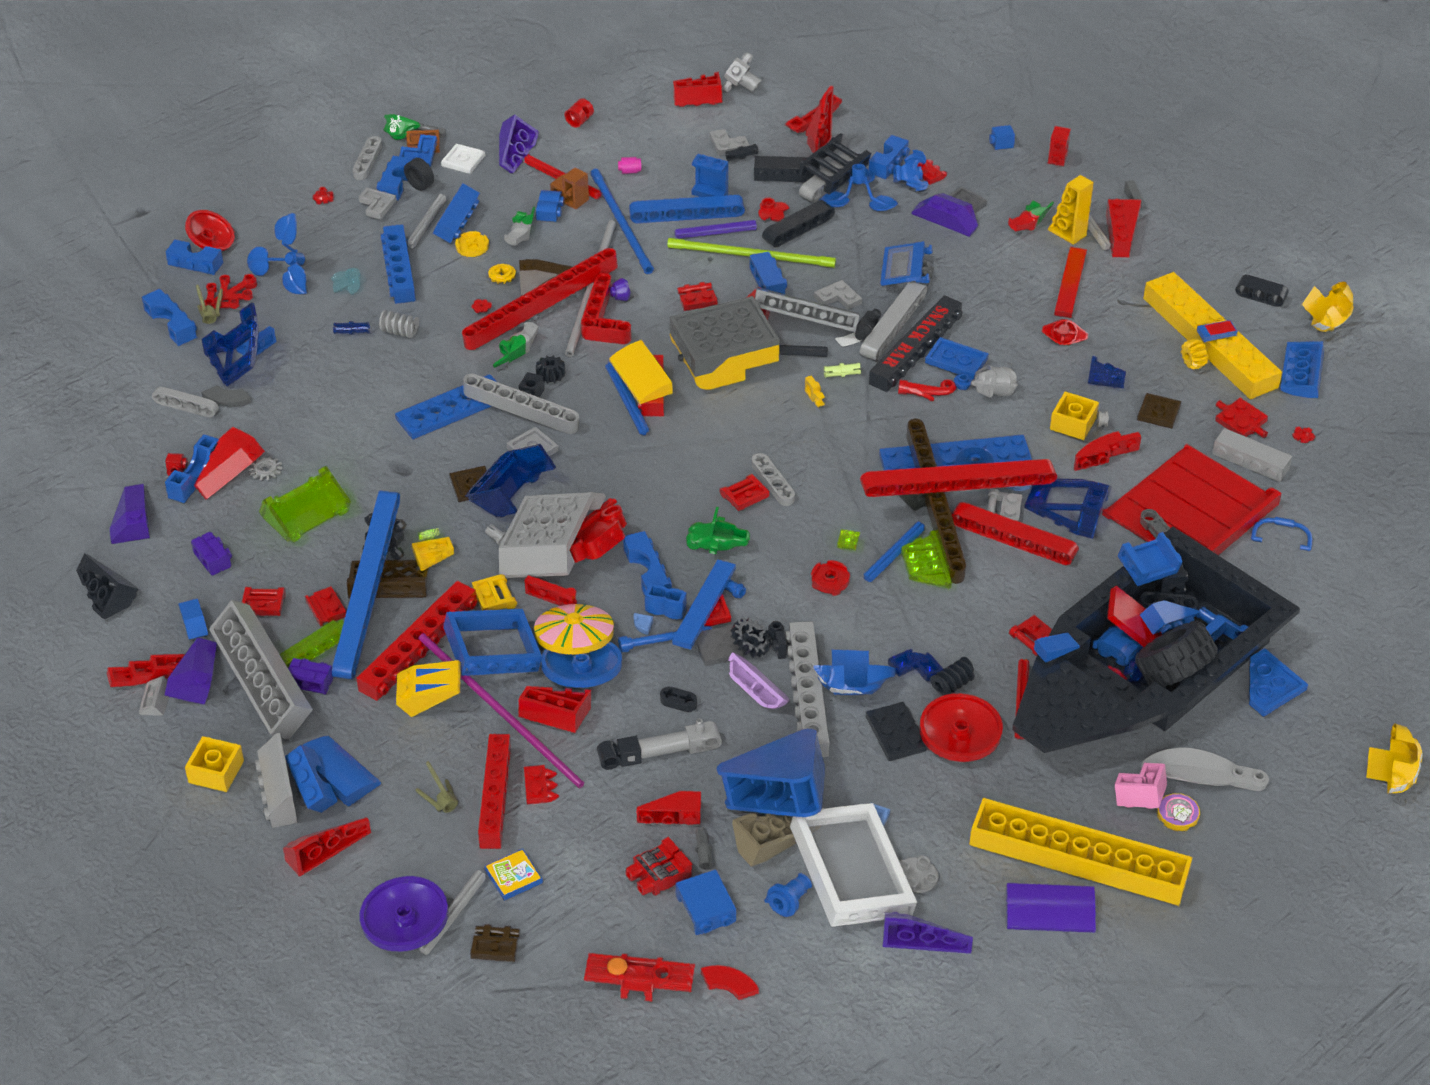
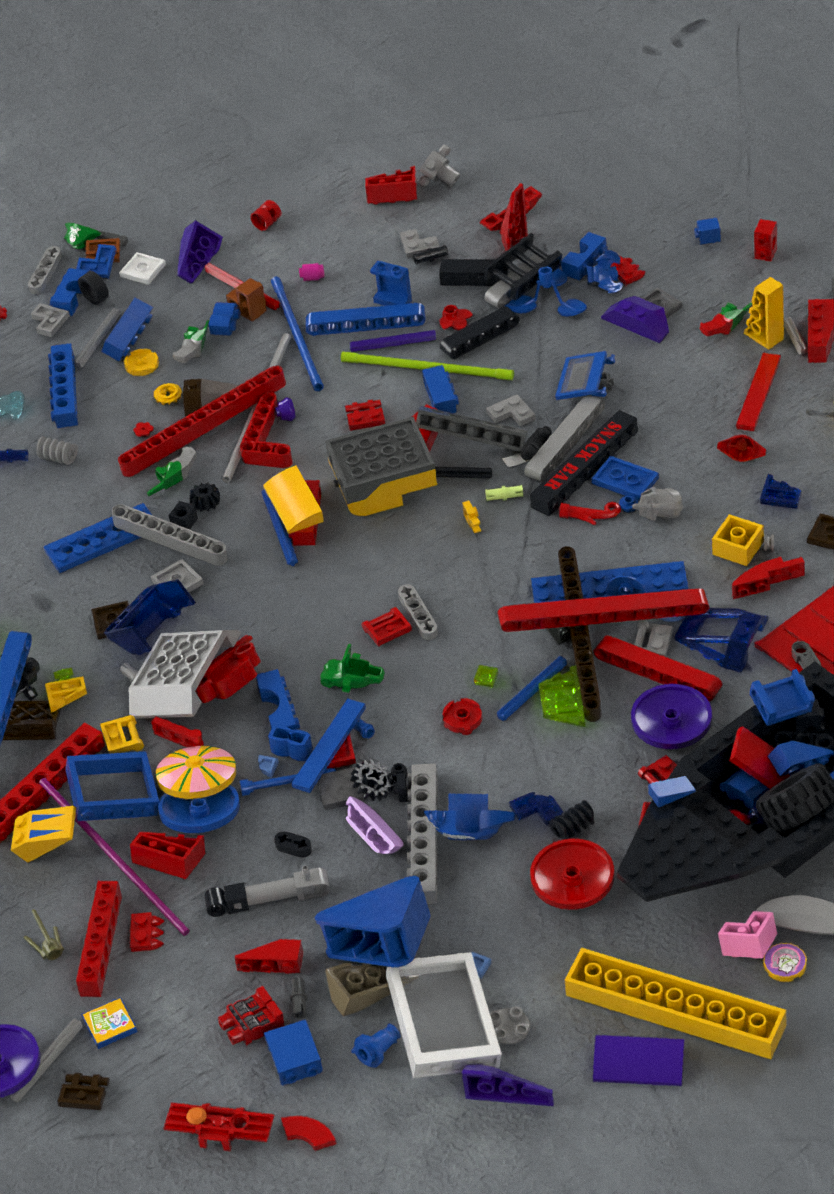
camera: 10 degrees right, 0 degrees up
(896, 731) = (508, 877): black plate -> none
(1035, 578) = (671, 716): none -> dark purple dish

